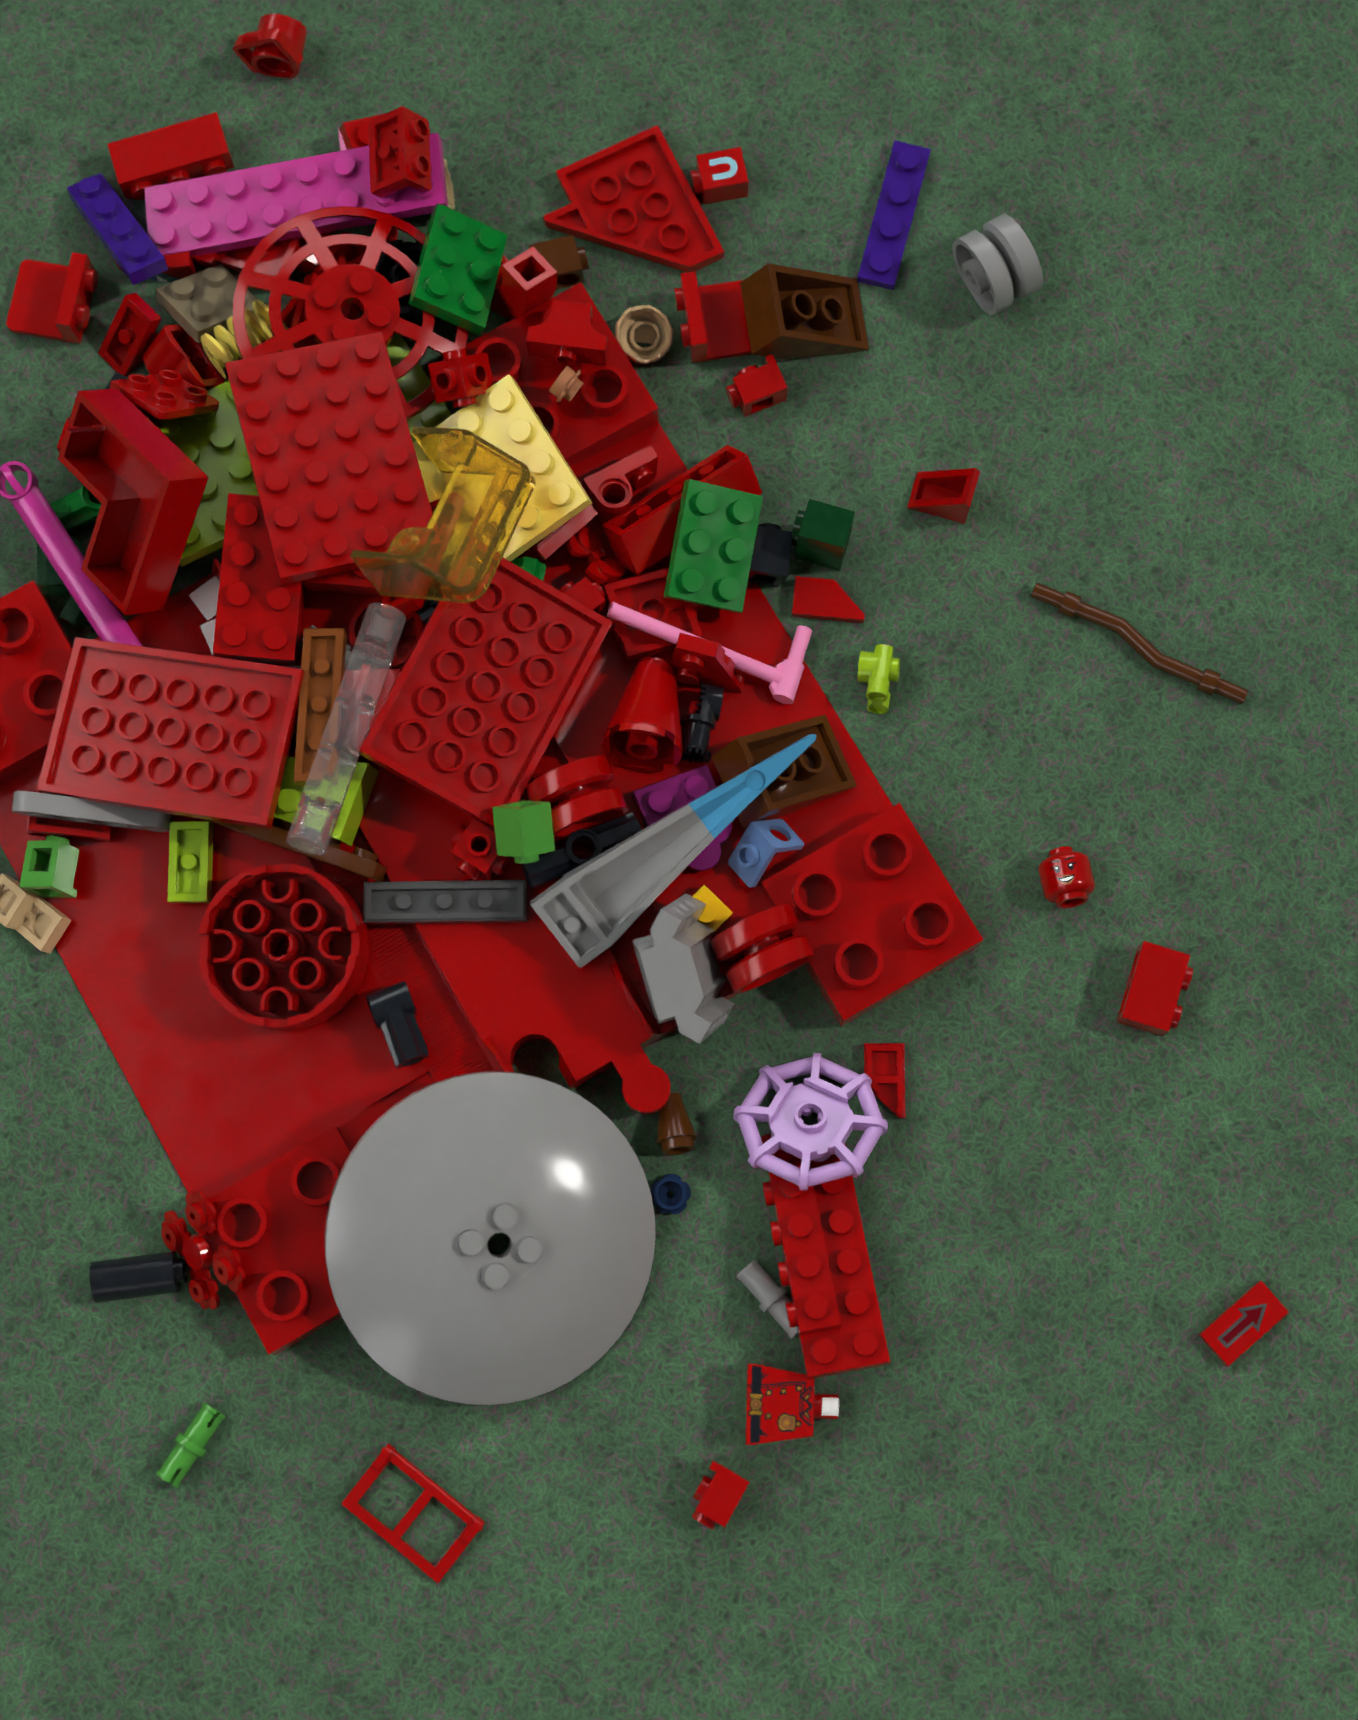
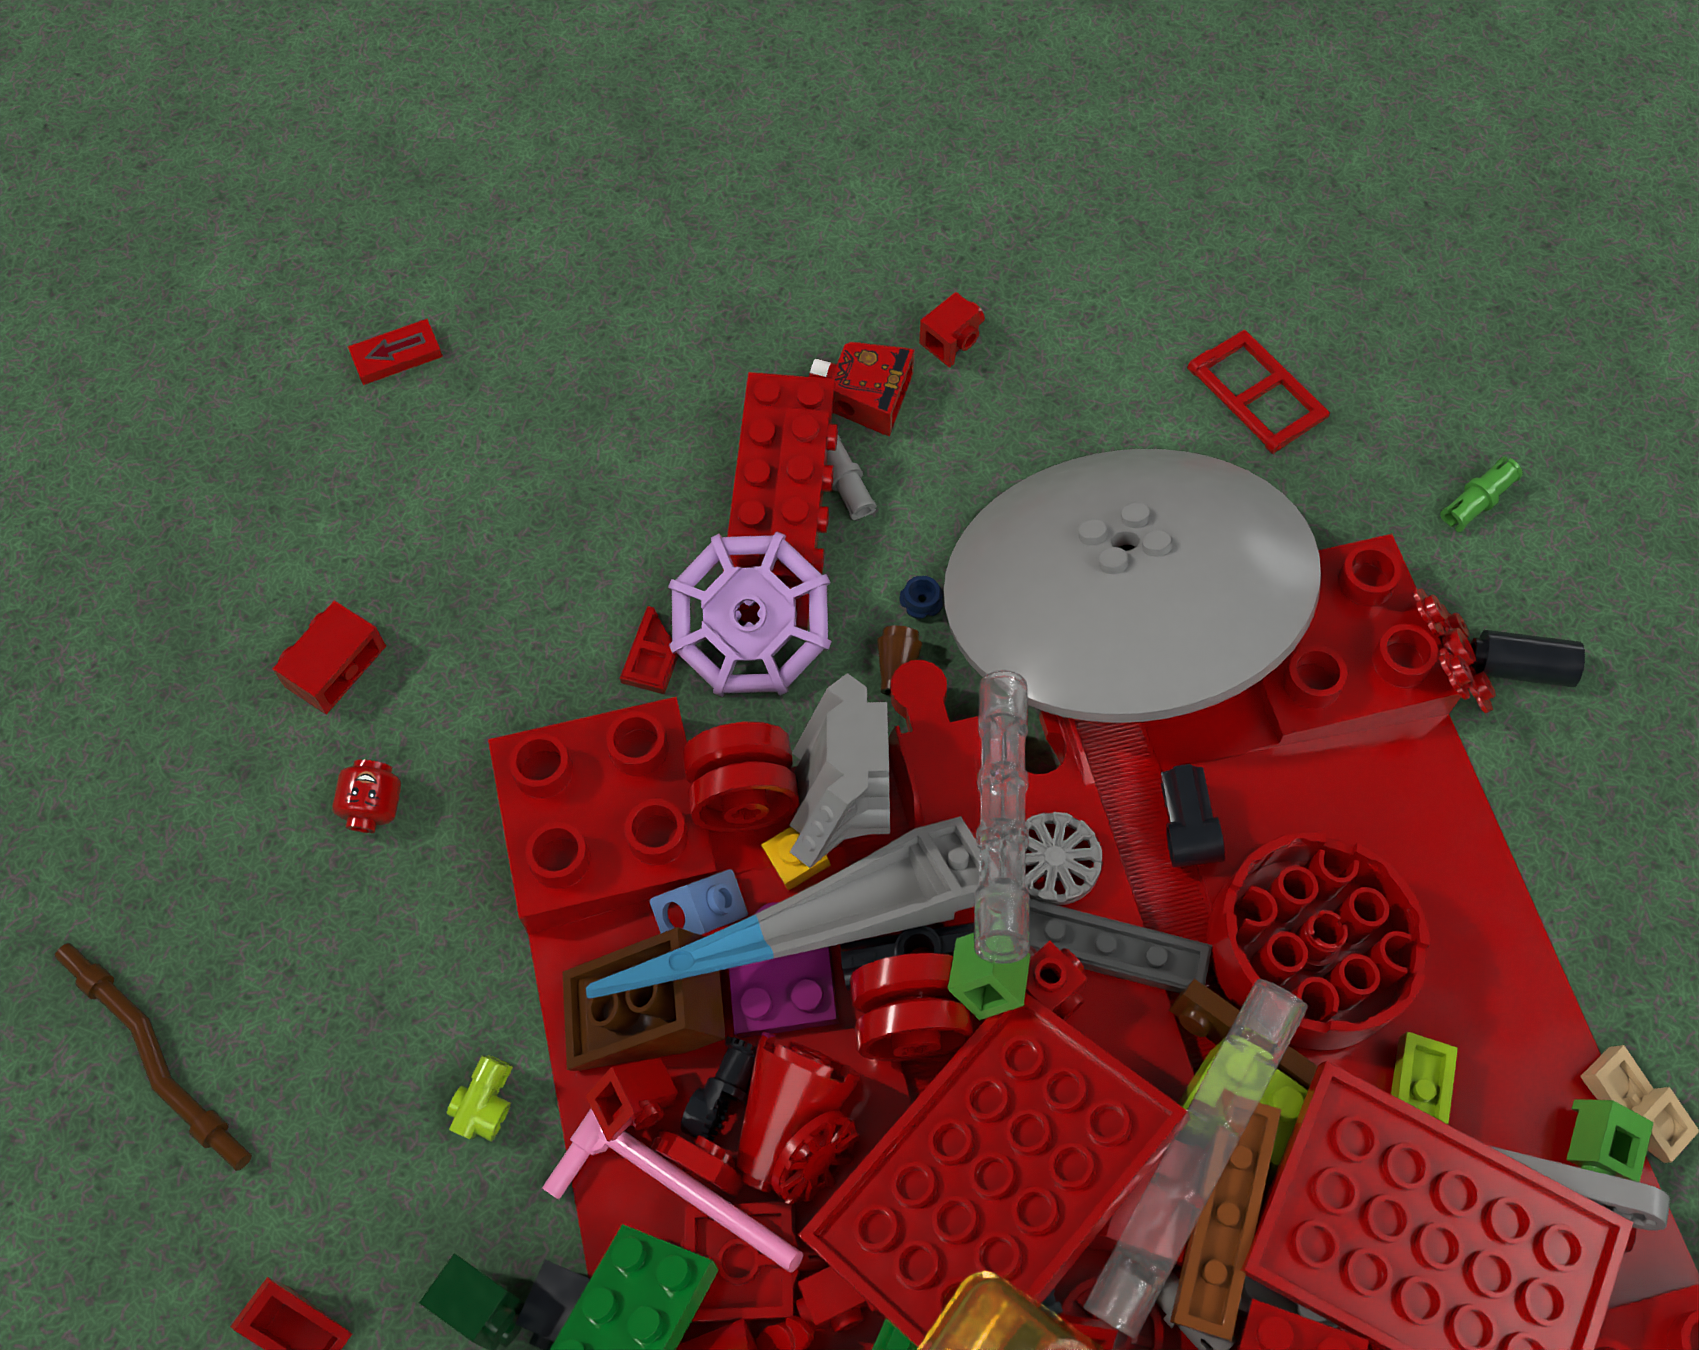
camera: 165 degrees left, 15 degrees down
(498, 960) = (1057, 858): none -> light grey wheel
(562, 1039) = (1002, 837): none -> clear piece
(618, 682) = (814, 1157): none -> red wheel
(764, 695) = (631, 1096): none -> red brick
(823, 600) = (513, 1229): red tile -> none

